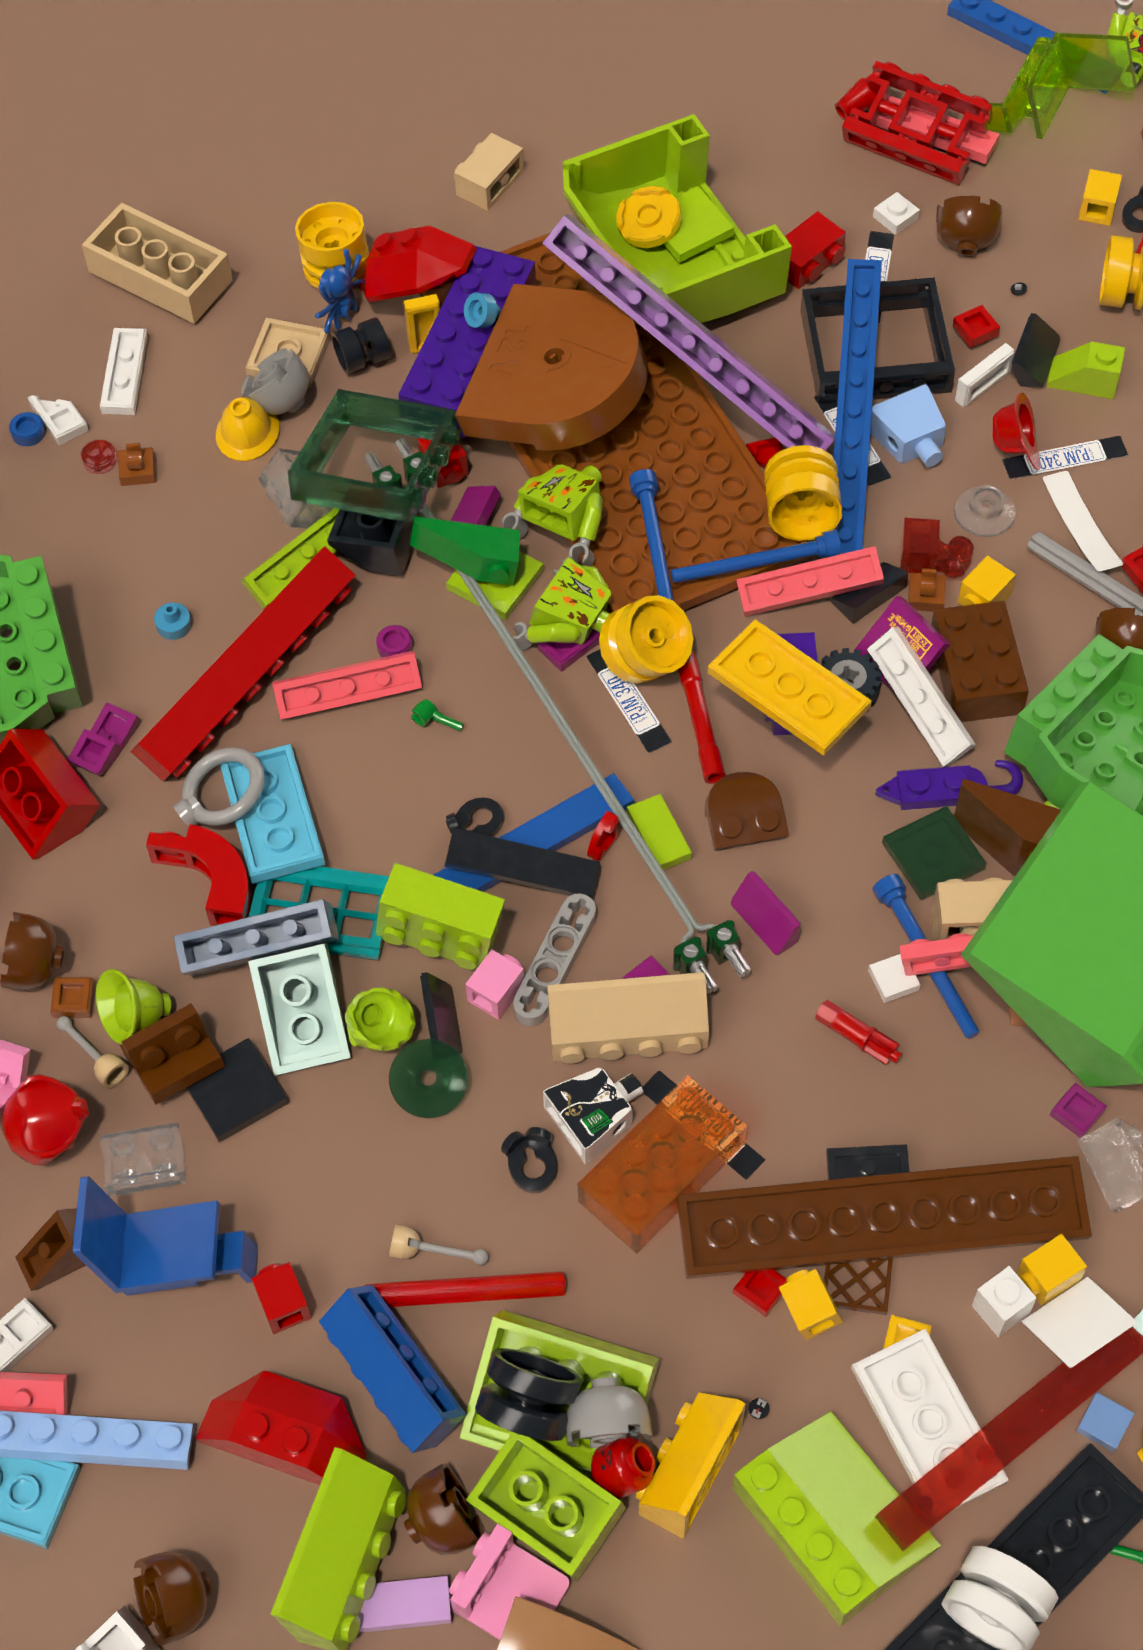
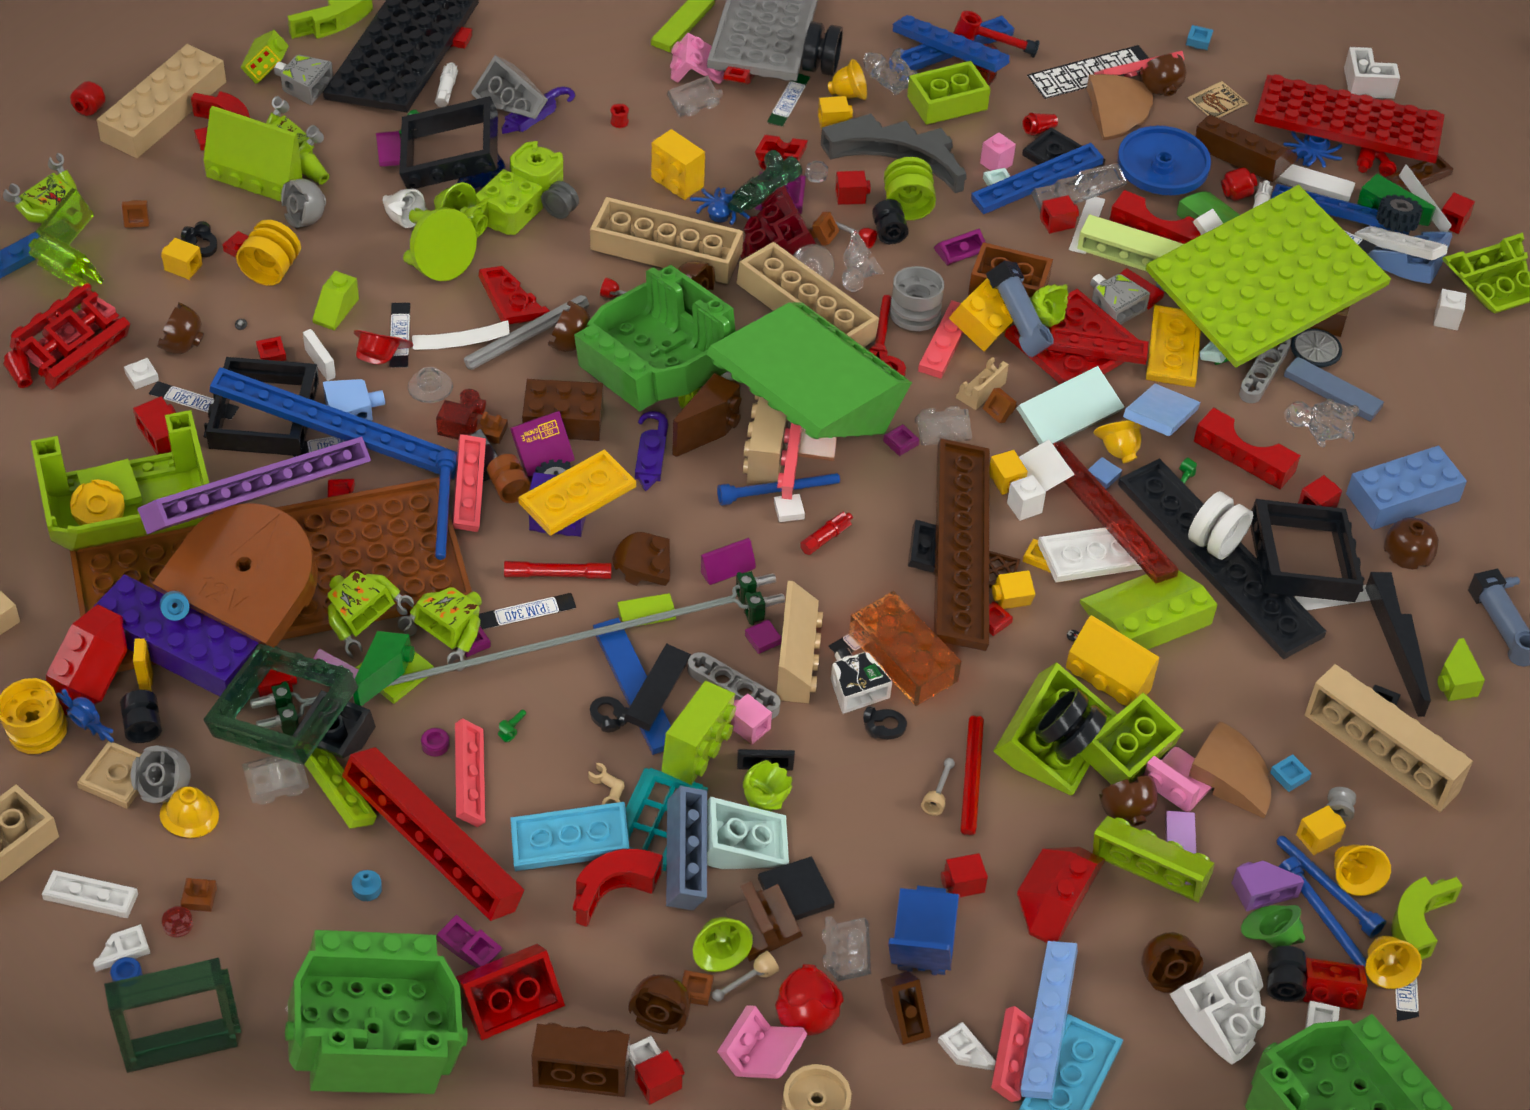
camera: 85 degrees left, 10 degrees down
(191, 809) = (555, 886): light grey piece -> none
(357, 852) = (615, 784): none -> tan arm
(392, 1368) = (1027, 815): blue brick -> none
(424, 1099) = (816, 766): clear green dish -> none
(603, 836) = (642, 640): red tile -> none
(607, 1414) = (1092, 680): light grey cylinder -> none
(623, 1466) = (1114, 694): red head -> none
(644, 487) = (357, 556): blue piece -> none
(646, 639) = (497, 576): yellow wheel -> none
(802, 492) = (405, 460): yellow wheel -> none
(835, 623) = (508, 477): none -> dark orange wheel
(921, 697) = (583, 443): white tile -> none
(933, 852) = (700, 468): clear green tile -> none
(987, 583) = (503, 393): yellow brick -> none
(1035, 352) = (304, 322): black slope -> none

